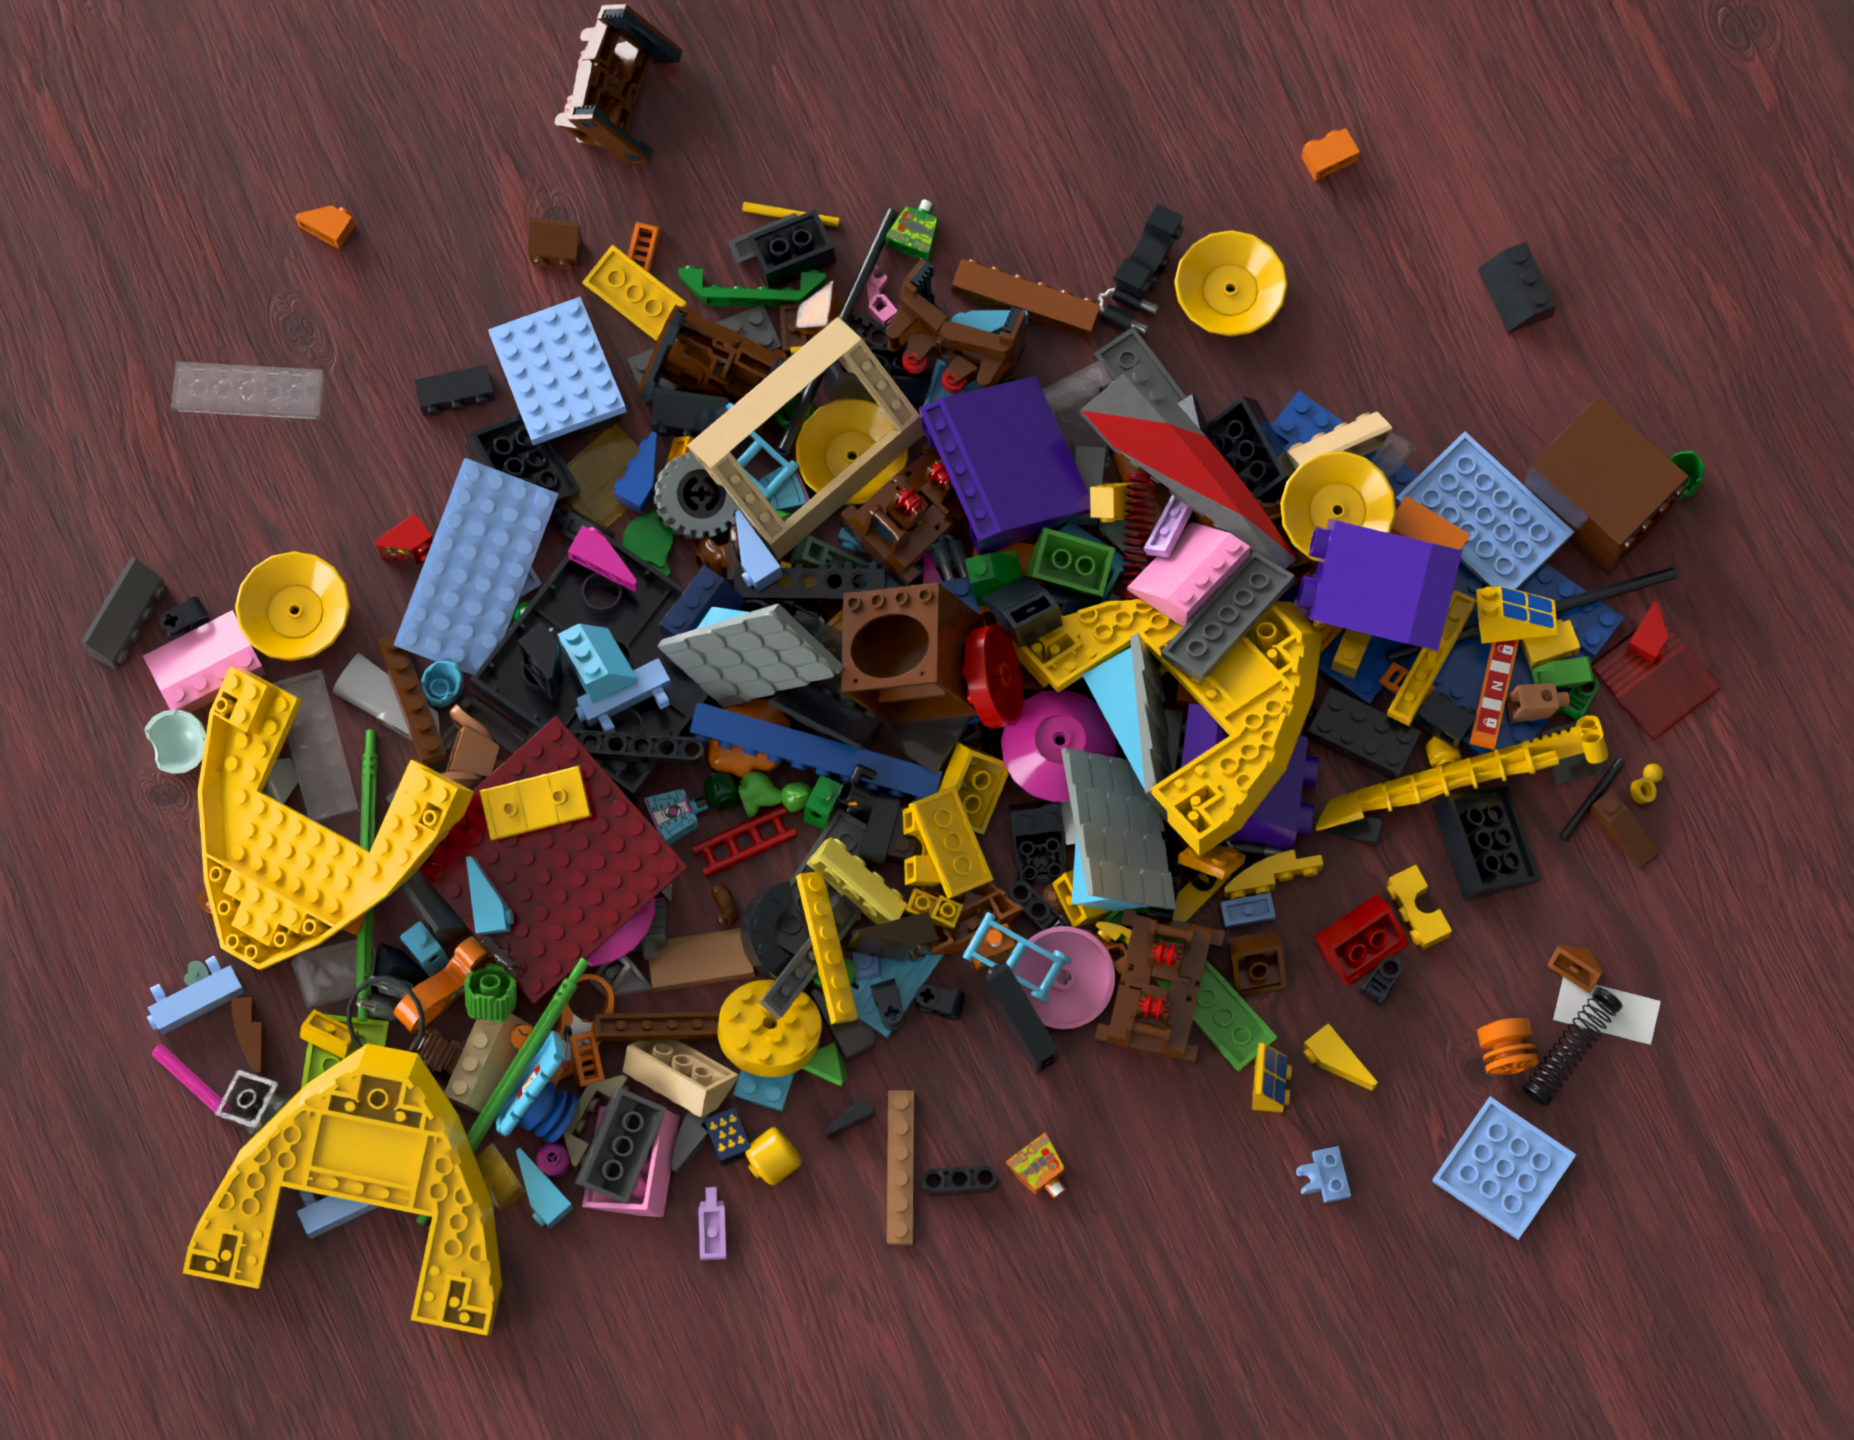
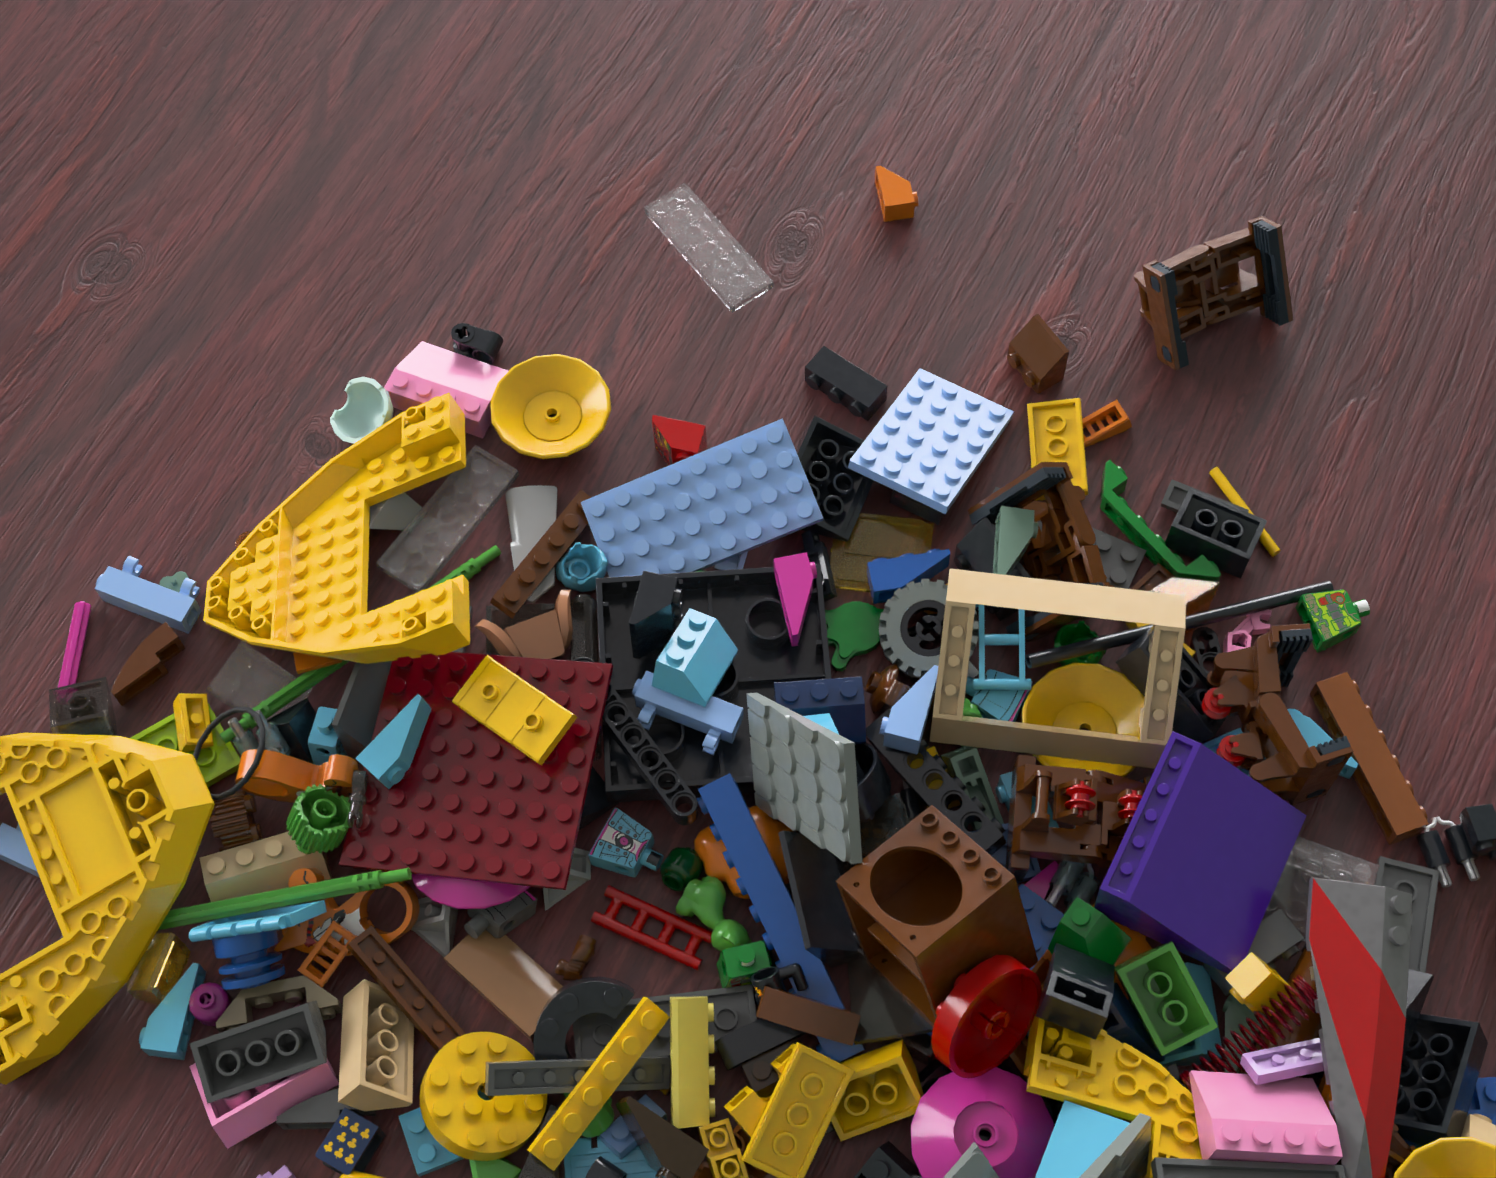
camera: 50 degrees right, 10 degrees down
(124, 614) = (440, 296): dark grey slope -> none
(687, 384) = (1012, 537): none -> sand green slope
(895, 785) = (808, 1015): none -> reddish brown slope

